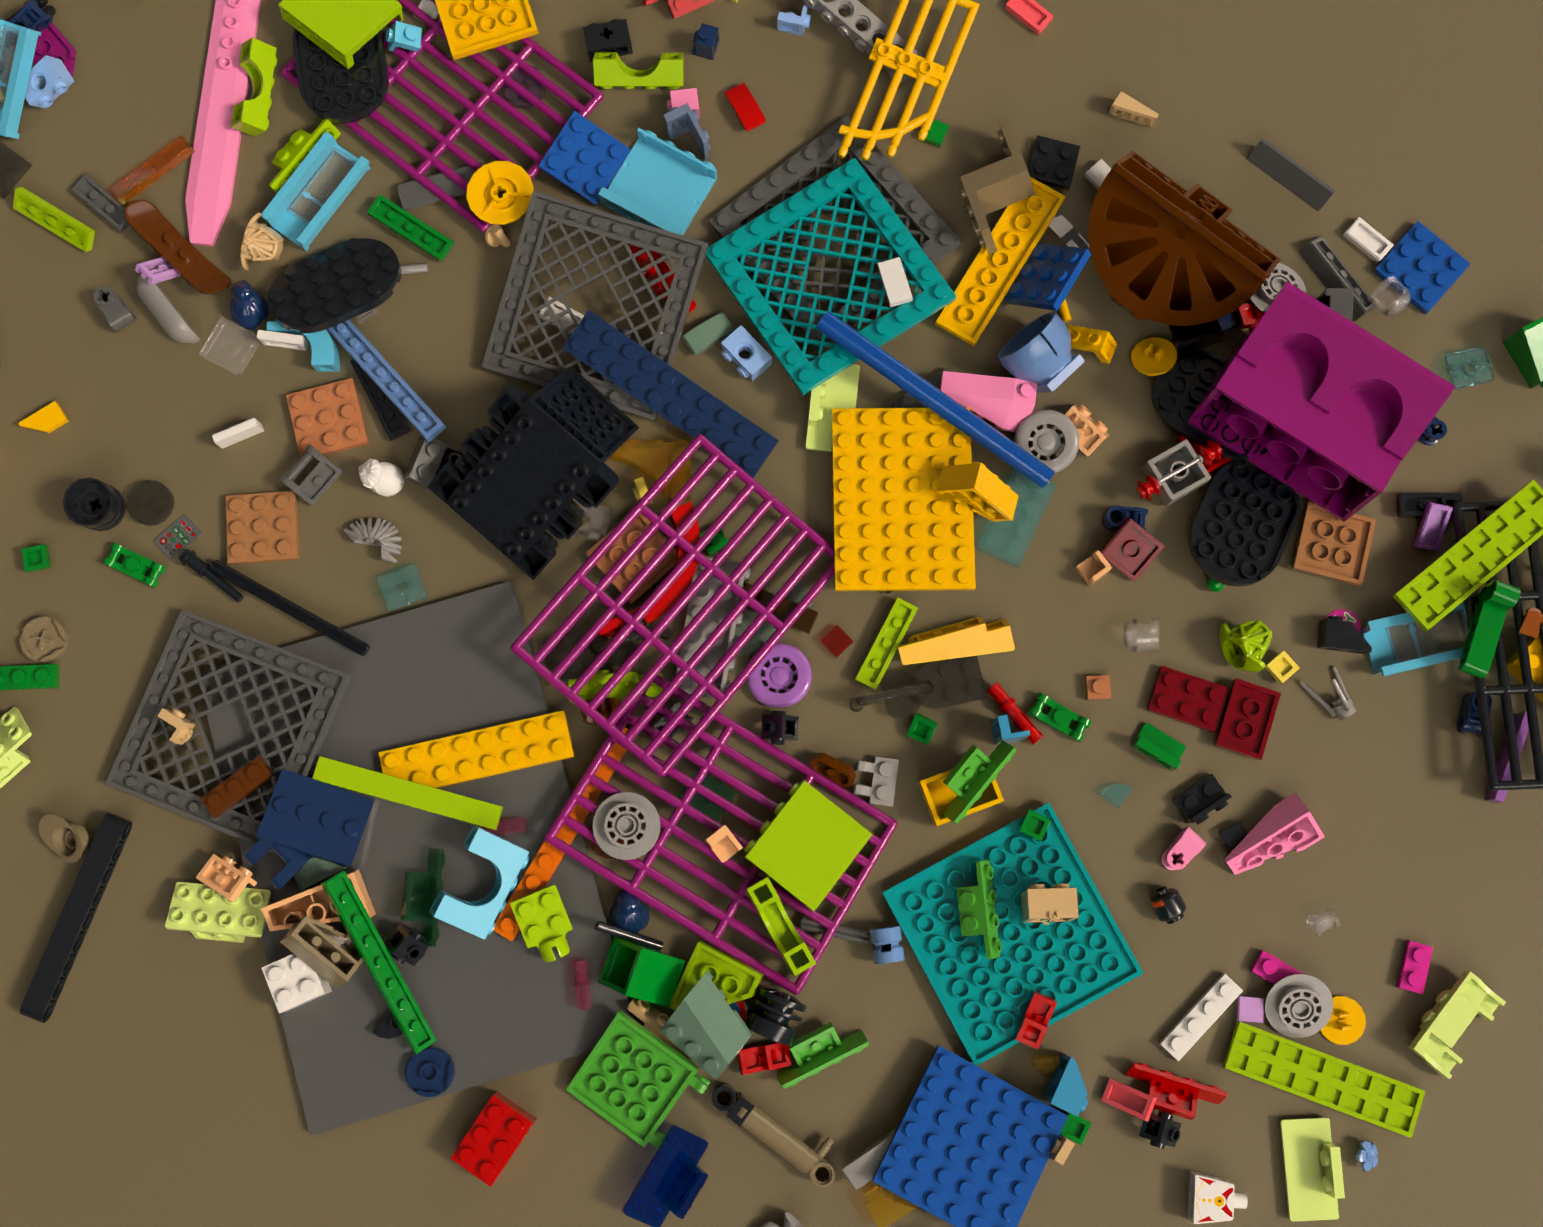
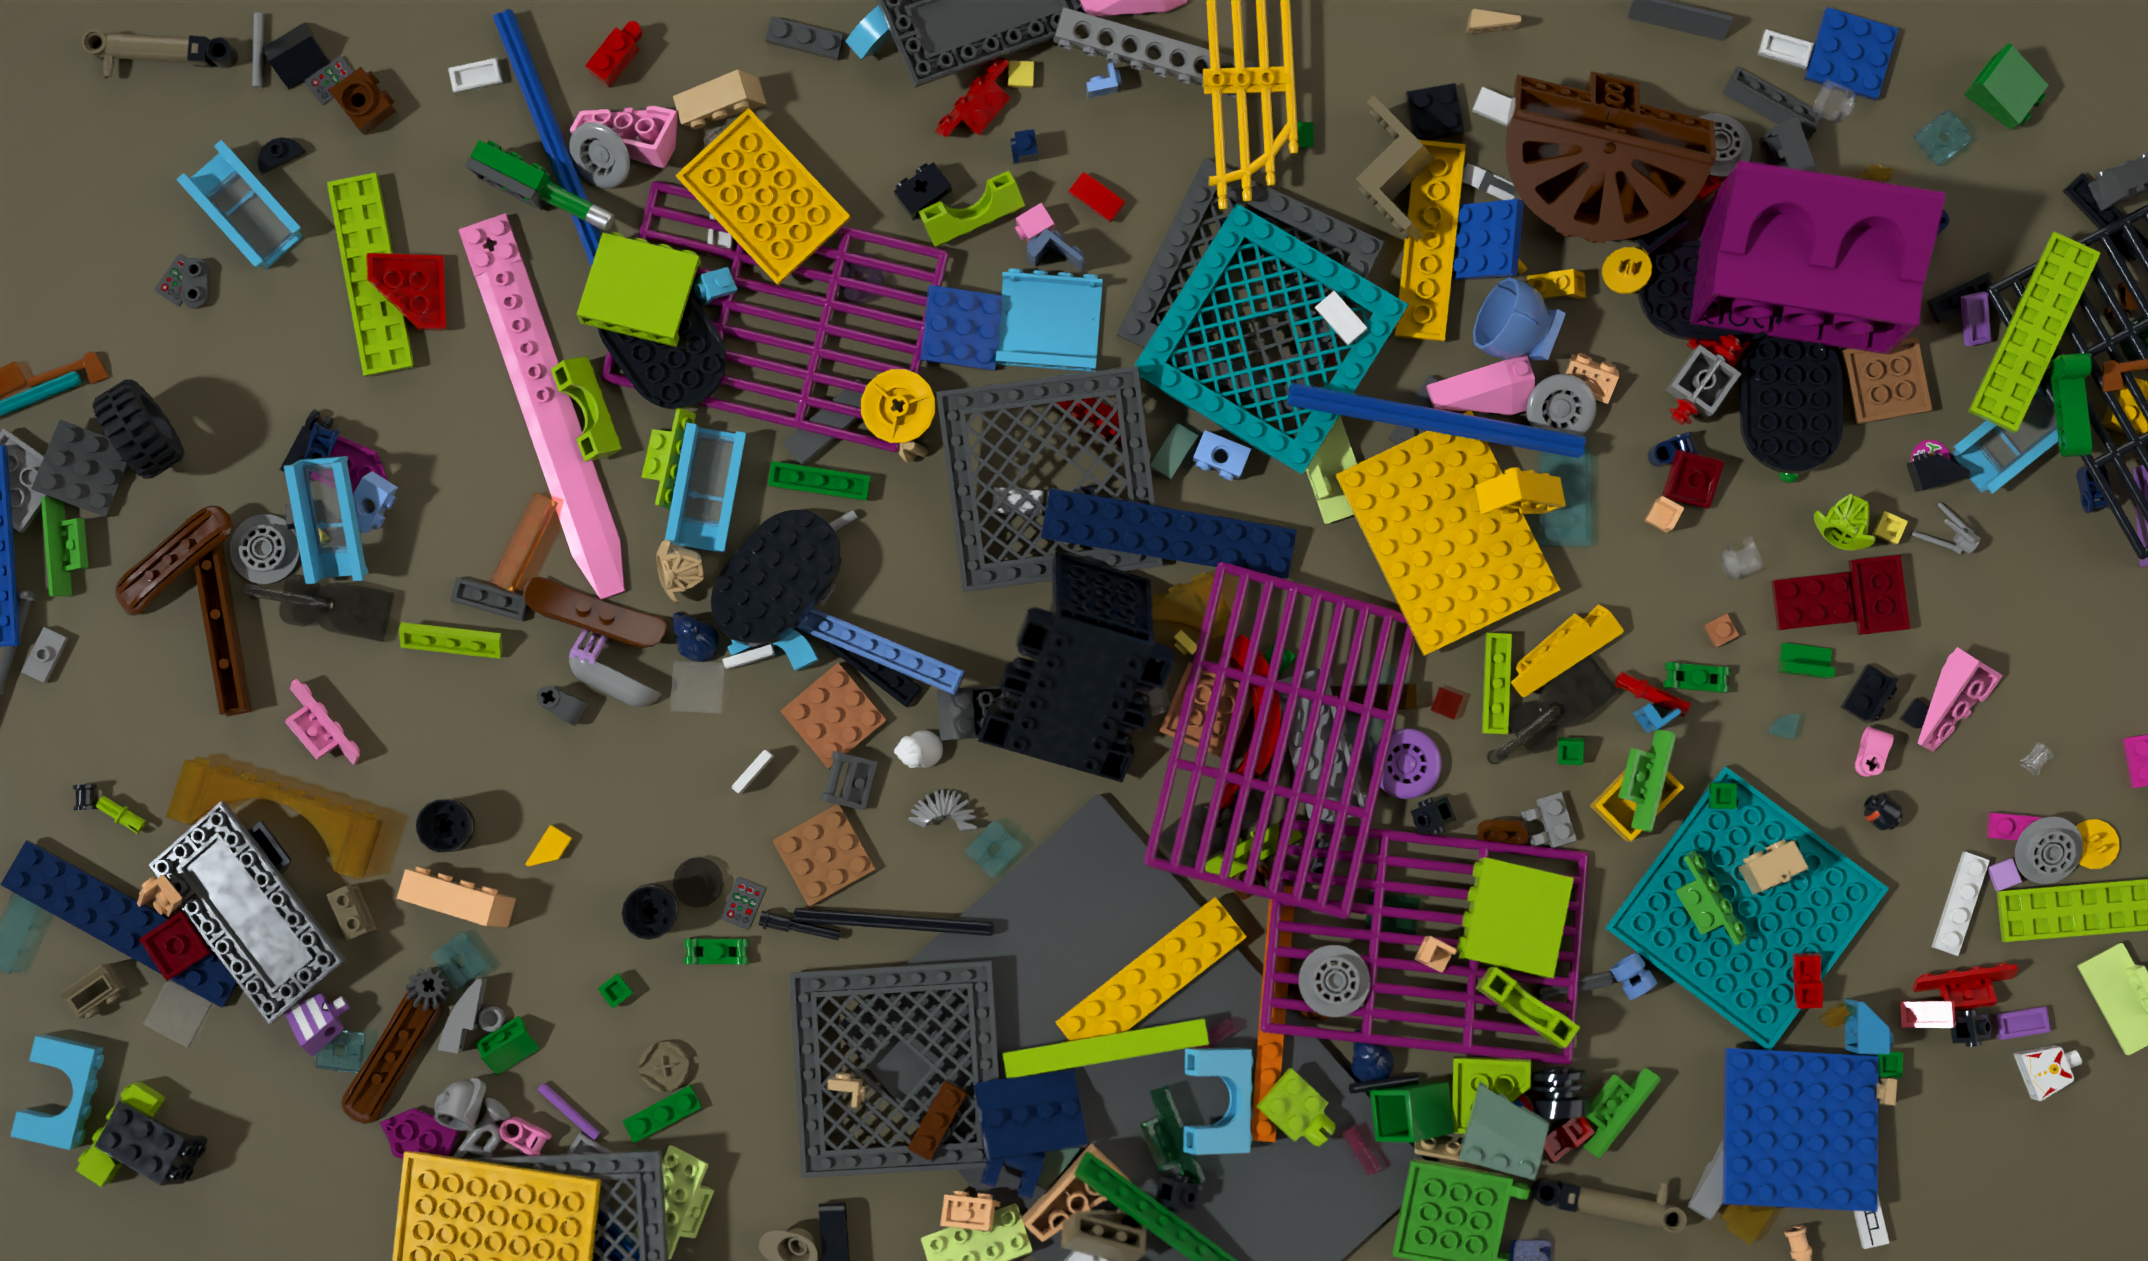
camera: 25 degrees left, 5 degrees up
(1209, 1147) = (2022, 1023): none -> medium lavender tile

